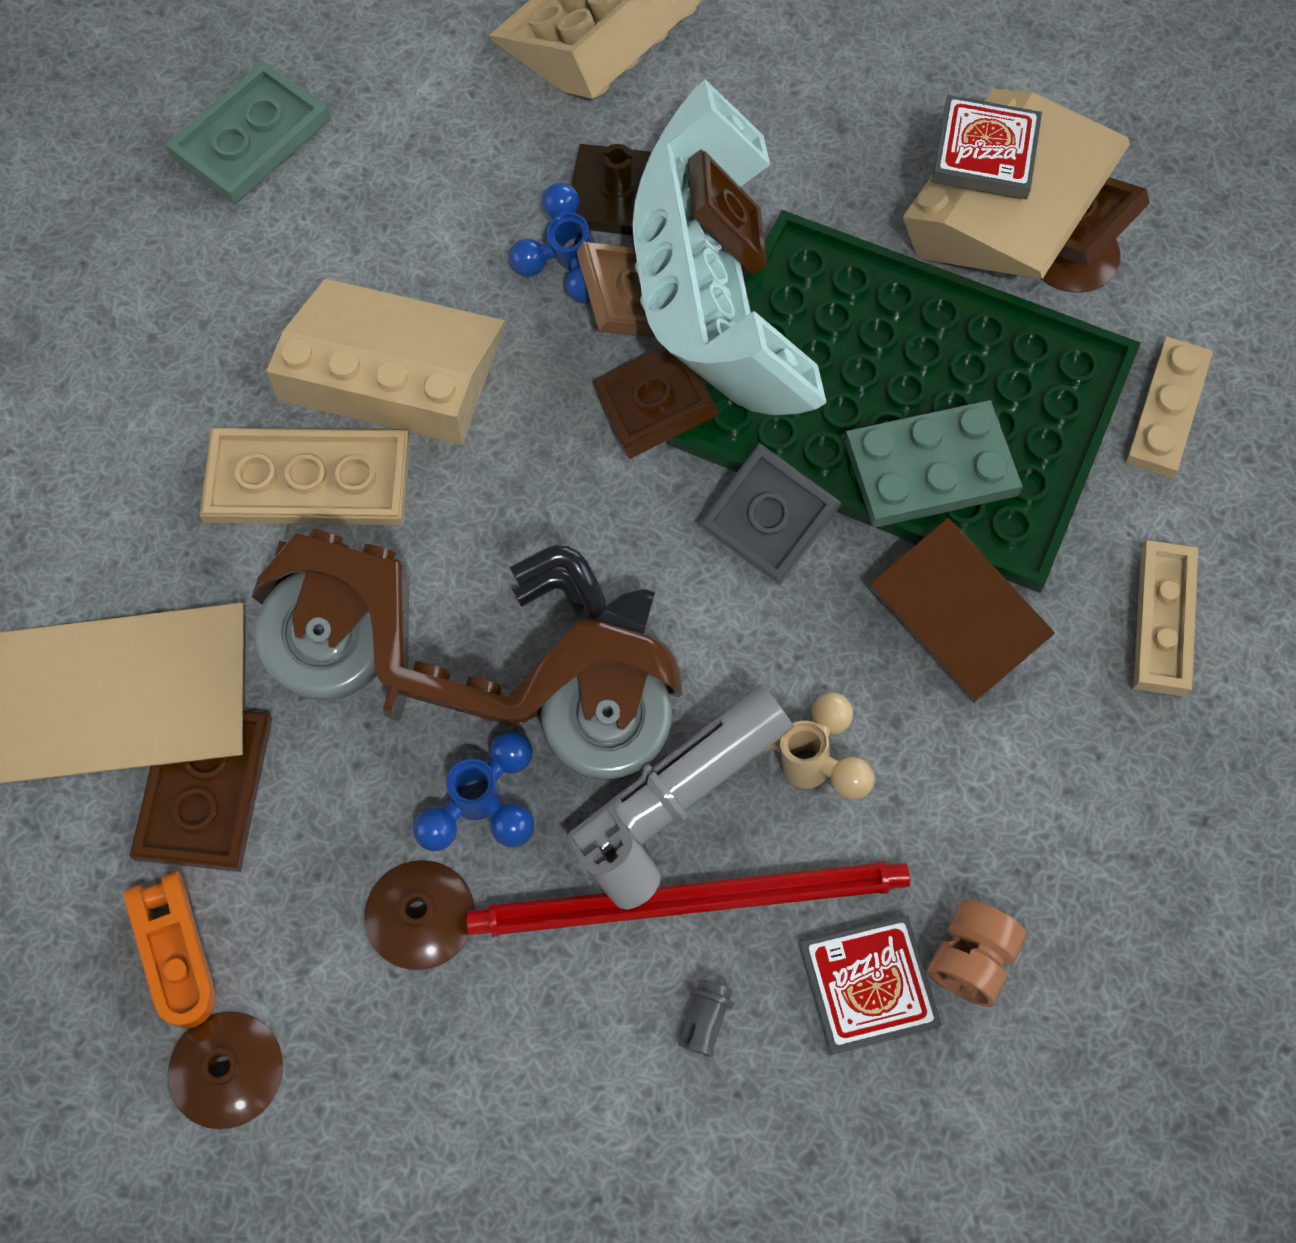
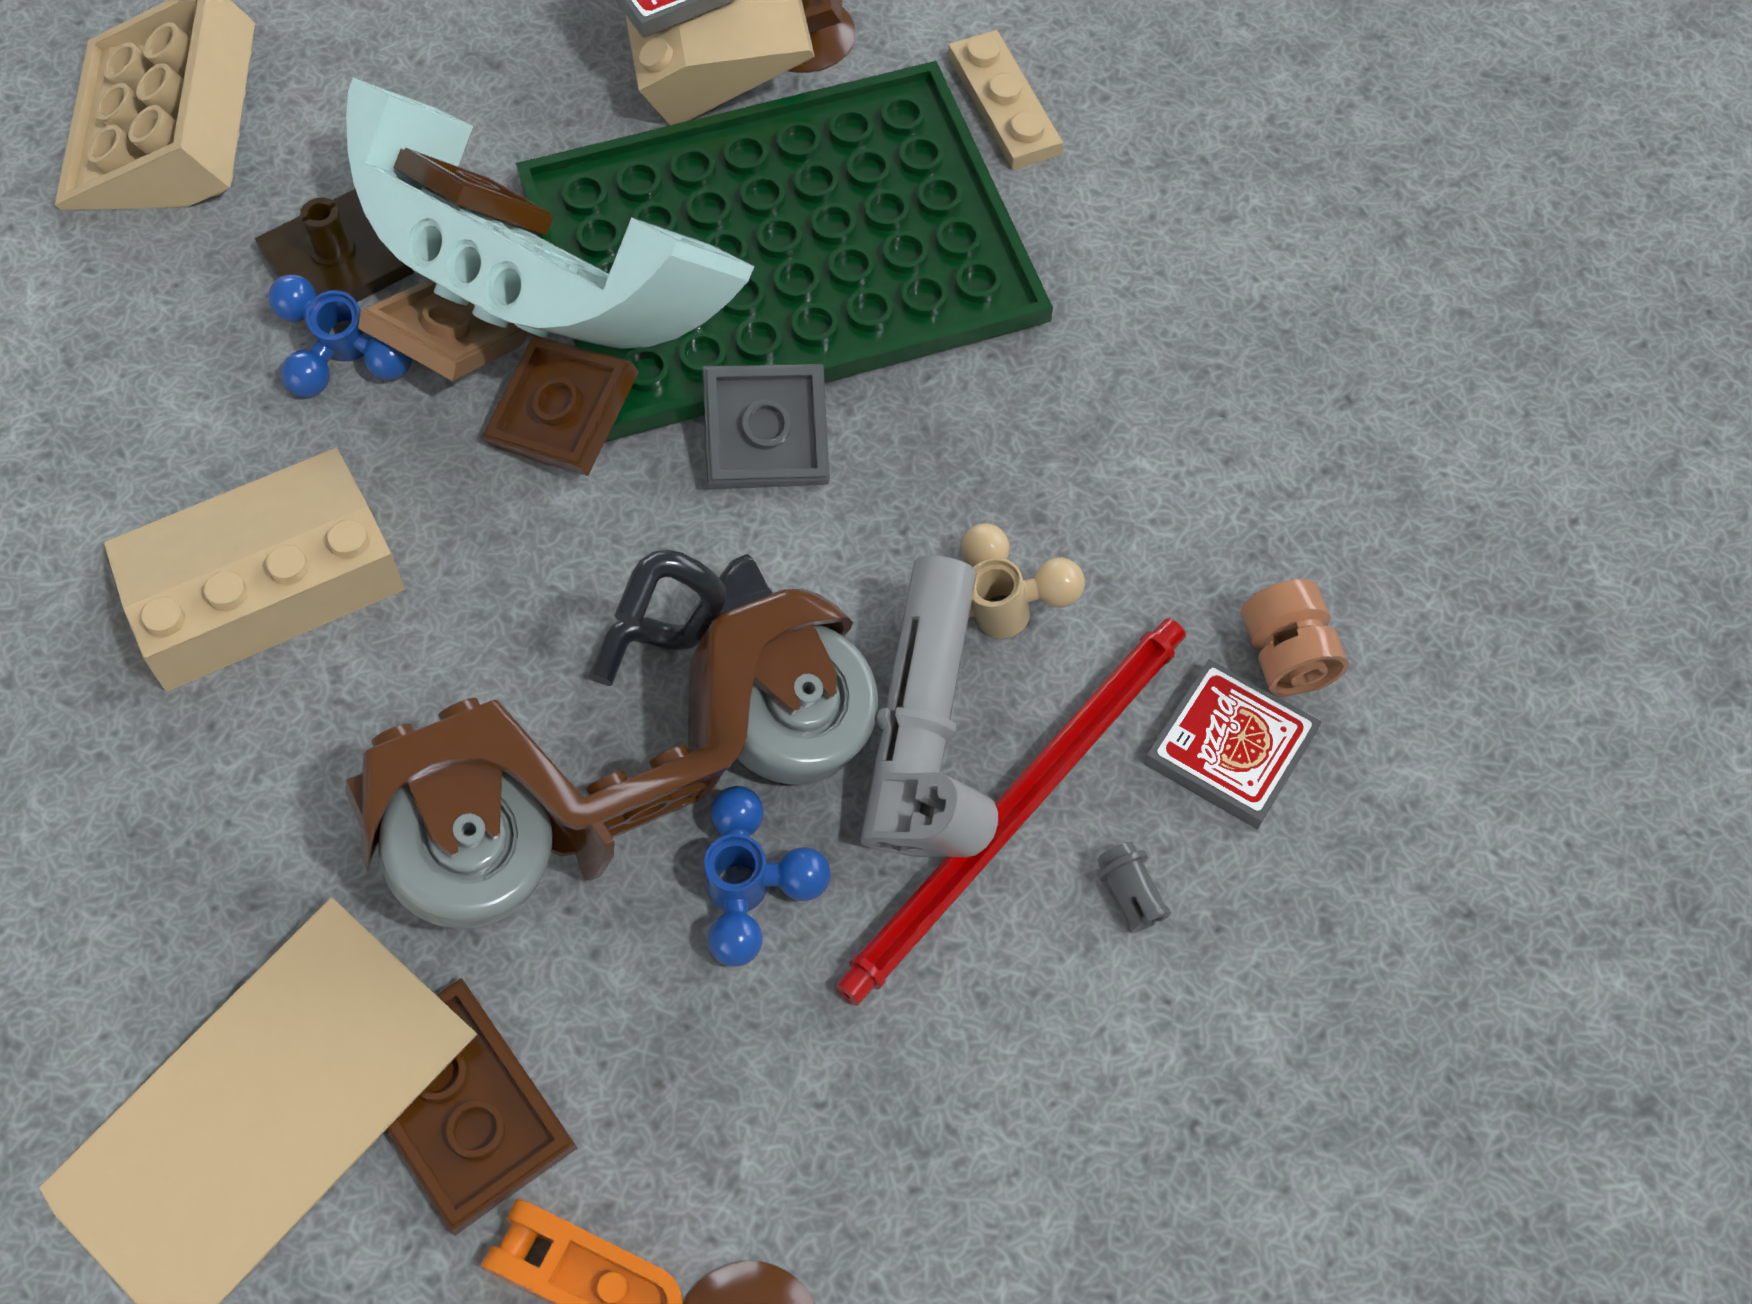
camera: 45 degrees left, 5 degrees down
(305, 476) = (270, 738): tan tile -> none
(422, 941) = (796, 1063): reddish brown dish -> none
(932, 463) = (865, 278): sand green plate -> none
(961, 610) = (1006, 379): reddish brown tile -> none
(1166, 619) = (1169, 263): tan plate -> none

